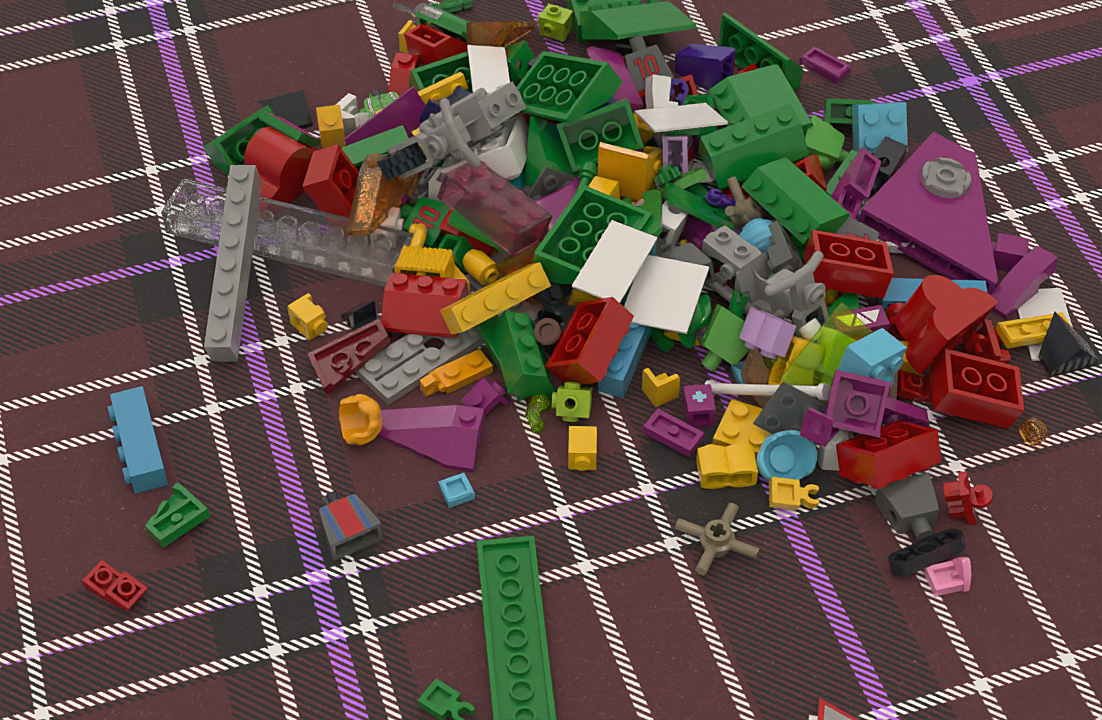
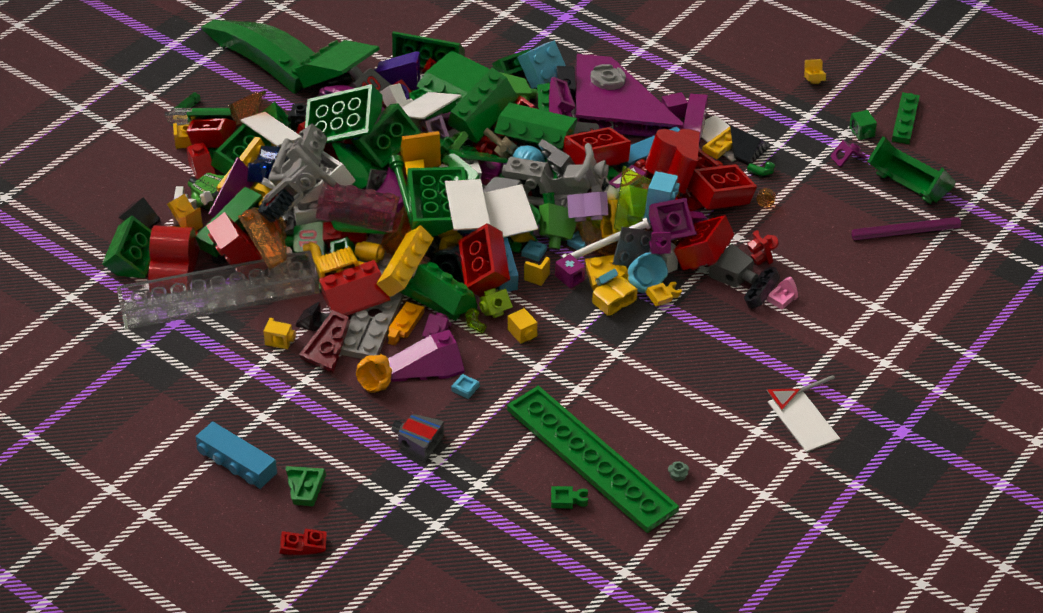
camera: 35 degrees left, 5 degrees down
(233, 264) = (207, 320): light grey brick -> none
(289, 129) = (150, 221): green tile -> none
(547, 332) = (453, 266): reddish brown tile -> none
(555, 22) = (273, 85): lime brick -> none
(673, 432) = (567, 292): magenta plate -> none
(683, 358) = (534, 250): none -> medium azure tile
(717, 199) = (482, 147): dark purple arm -> none
(717, 538) = (643, 336): dark tan bar -> none
(730, 437) = (606, 277): none -> medium azure tile
(825, 64) = (471, 42): magenta tile -> none
(1059, 392) = (761, 171): none -> green arm

